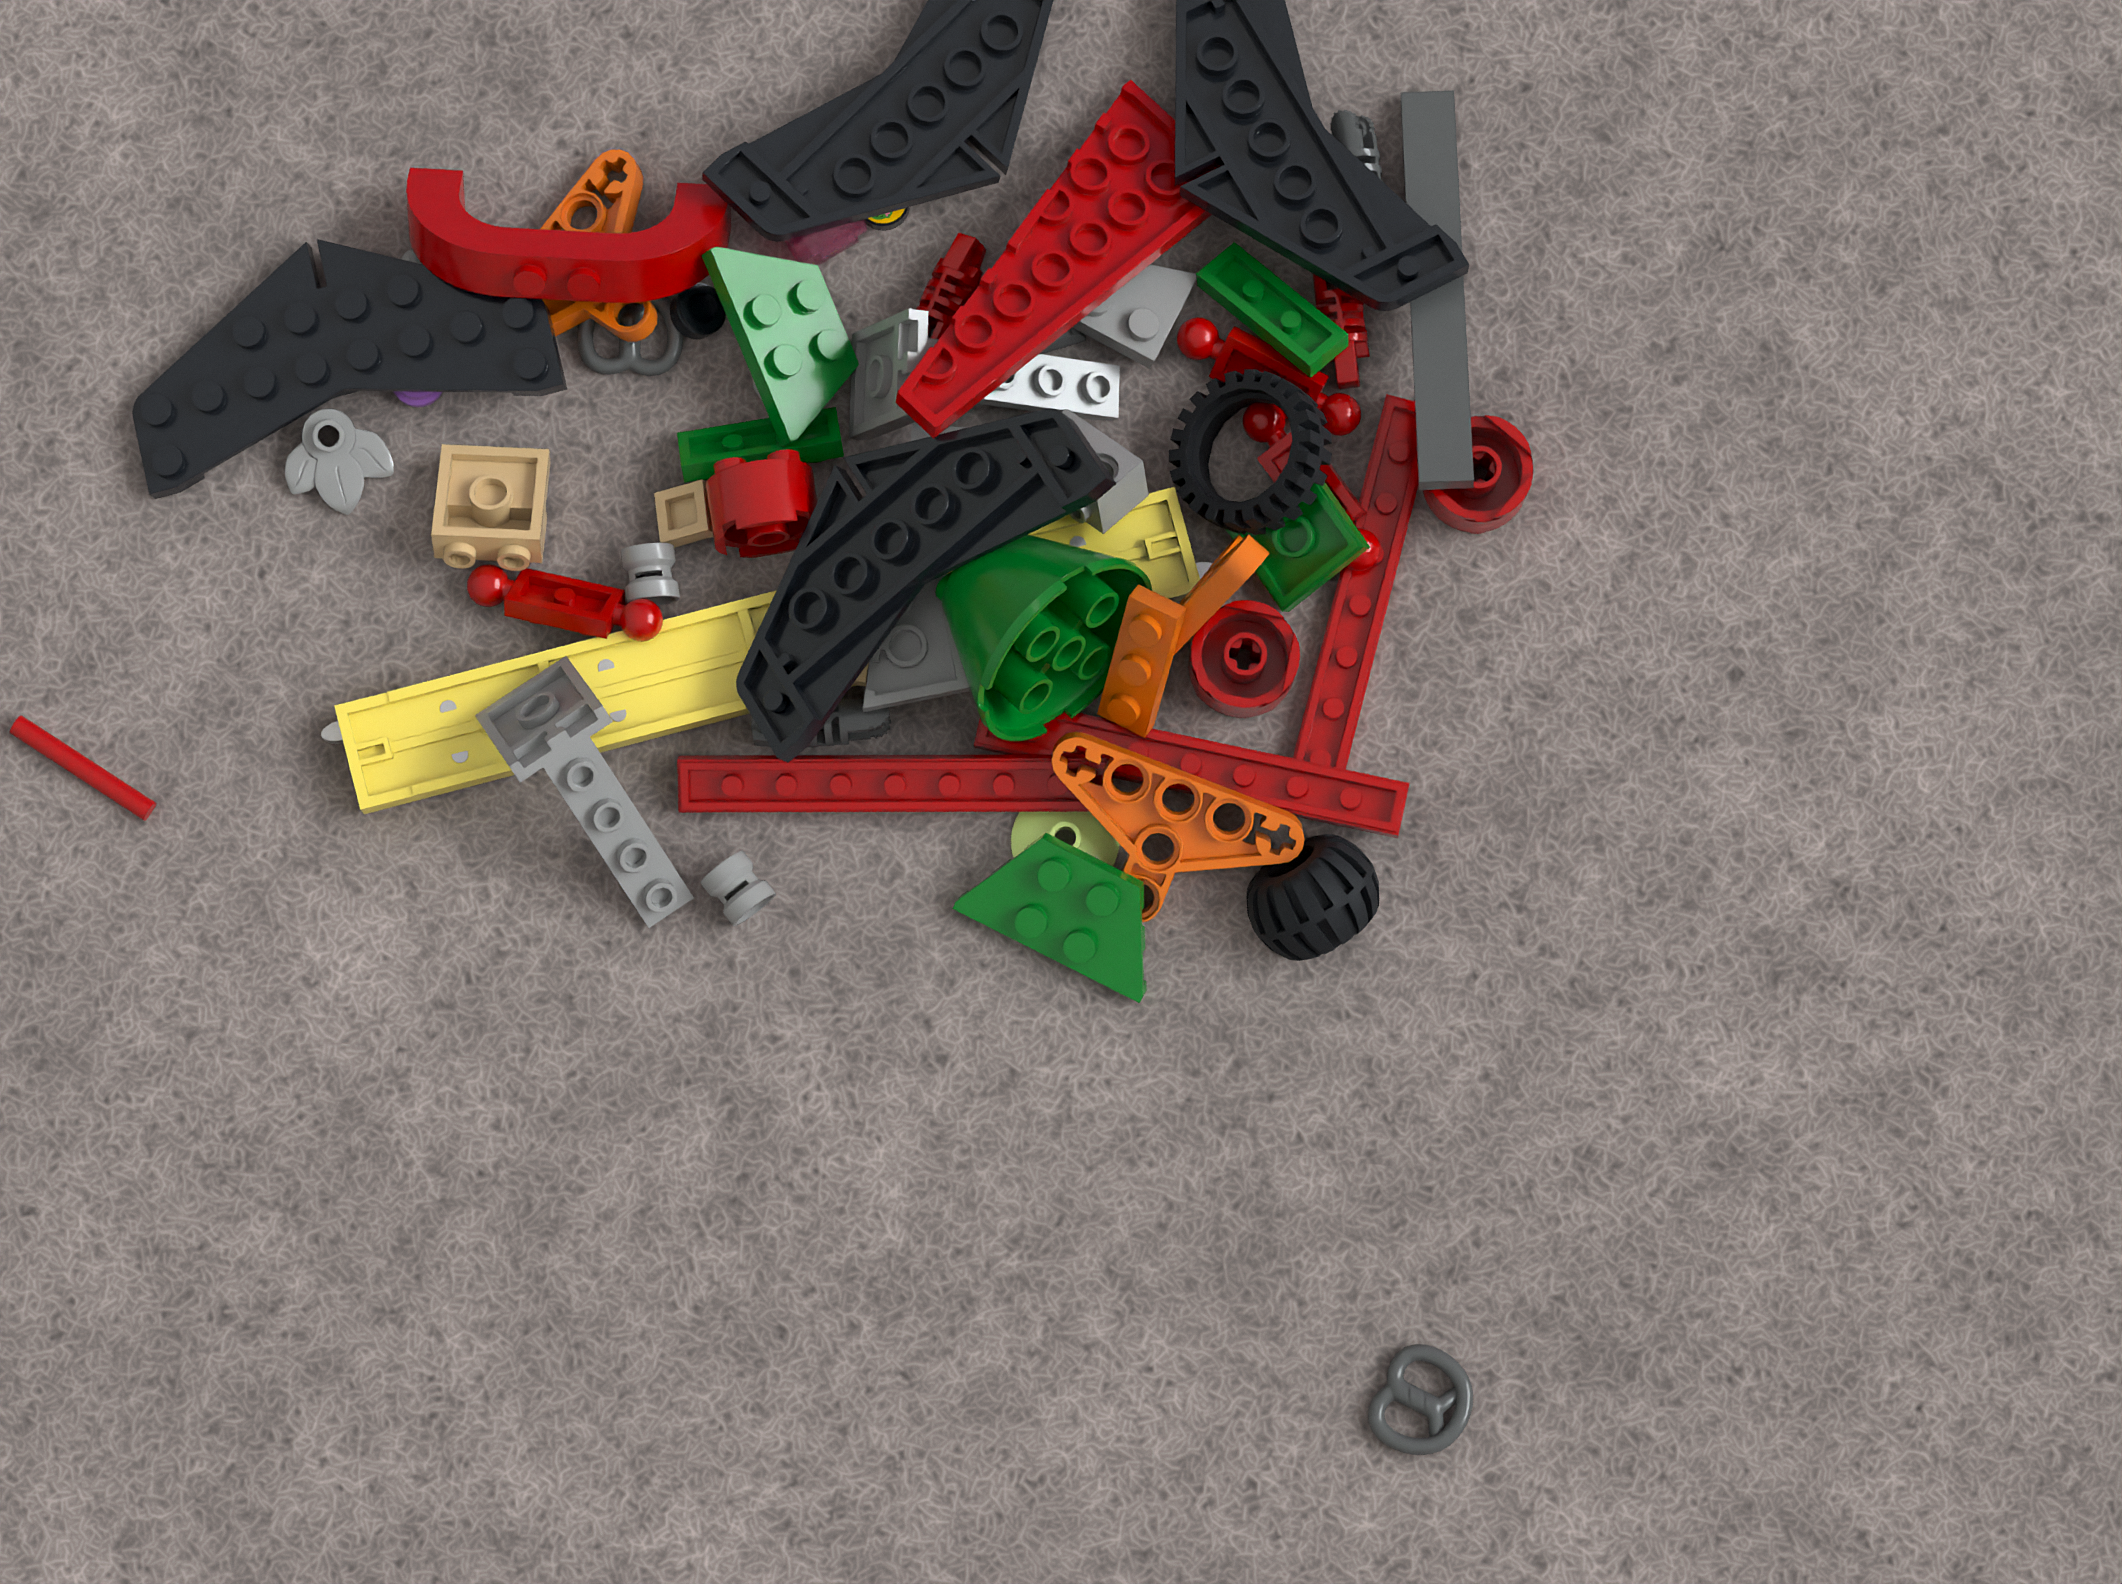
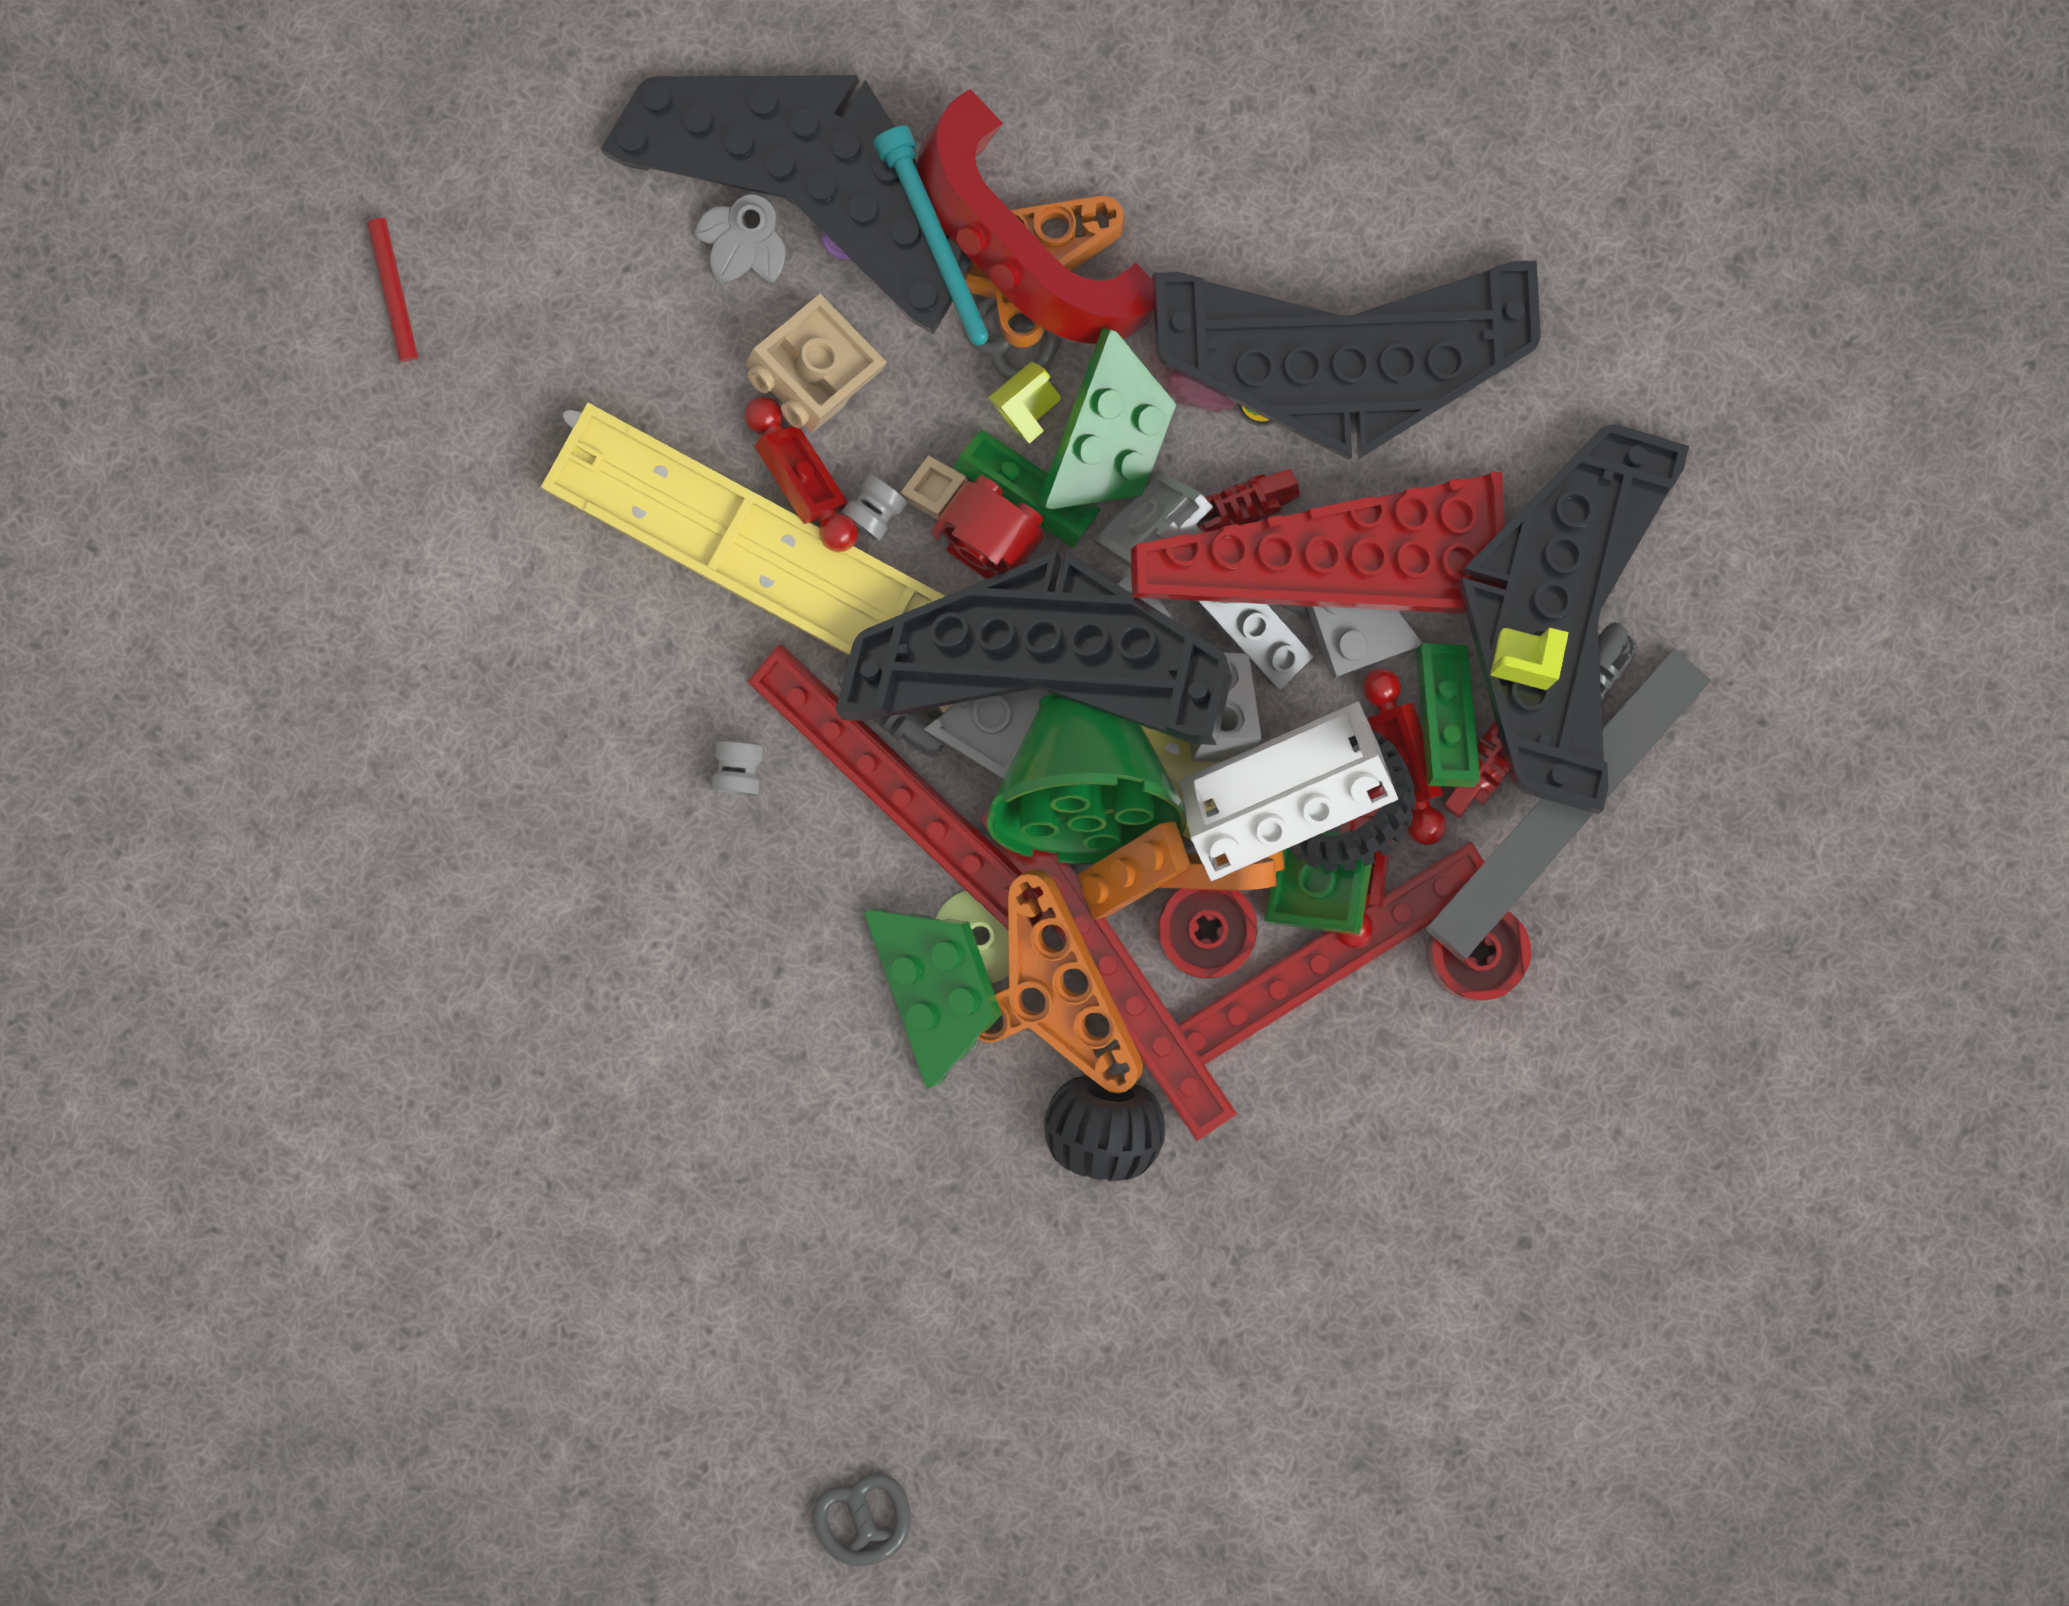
camera: 45 degrees right, 5 degrees up
(398, 266) = (897, 149): none -> teal piece
(550, 728) = (703, 551): light grey bracket -> none
(691, 376) = (1025, 400): none -> neon yellow panel
(697, 311) = (1068, 361): black tile -> none
(1205, 473) = (1285, 791): none -> white window
(1296, 198) = (1529, 658): none -> neon yellow panel

